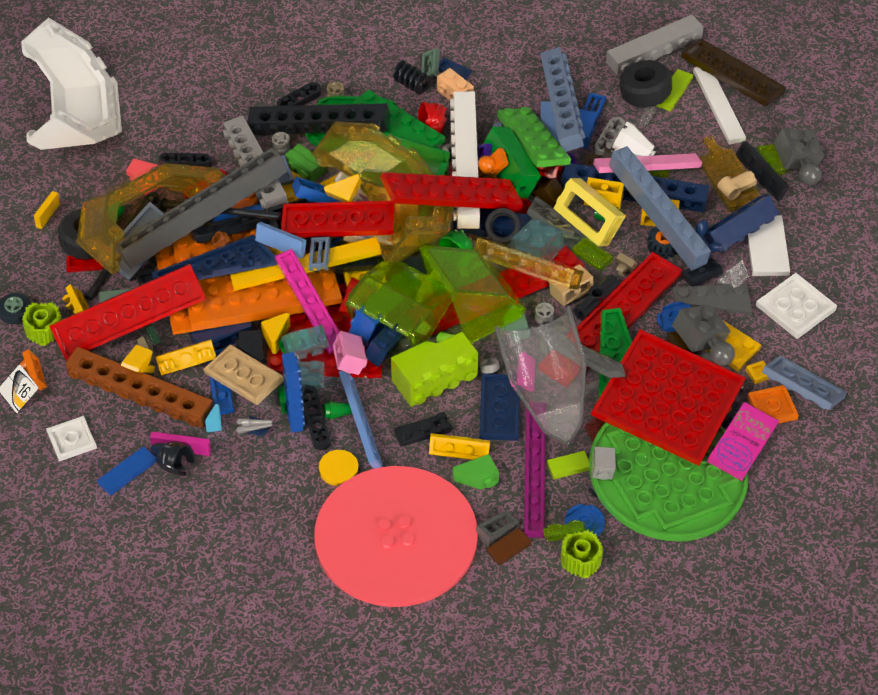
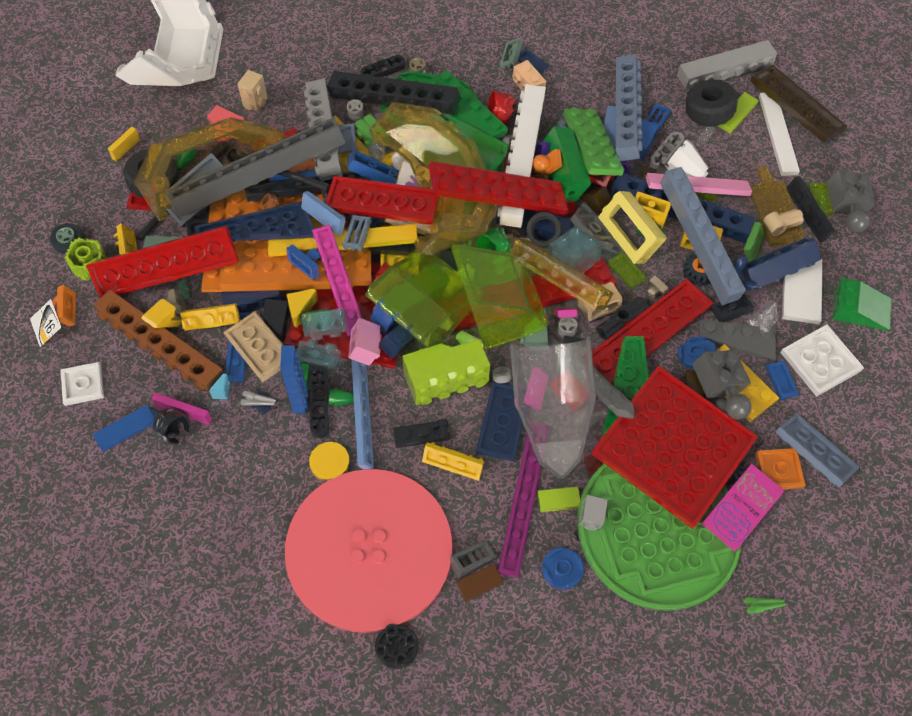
camera: 10 degrees right, 10 degrees up
(170, 136) = (252, 91): none -> tan brick
(200, 159) = (275, 113): black beam -> none
(271, 288) = (304, 262): none -> blue tile
(315, 176) = (376, 151): none -> clear cone
(345, 189) = (396, 170): yellow slope -> none
(411, 77) = (490, 63): black piece -> none
(443, 610) = (396, 646): none -> black tile
(477, 473) = (465, 493): bright green slope -> none
(537, 299) = (564, 312): none -> dark pink tile
(558, 532) = (549, 578): clear neon green plate -> none
(581, 553) = (550, 620): lime brick -> none
(712, 207) = (754, 241): none -> bright green tile
(755, 372) = (770, 426): yellow tile -> none
(761, 329) = (781, 380): none -> blue tile
(772, 523) = (760, 605): none -> bright green piece
(826, 250) = (861, 305): none -> green slope

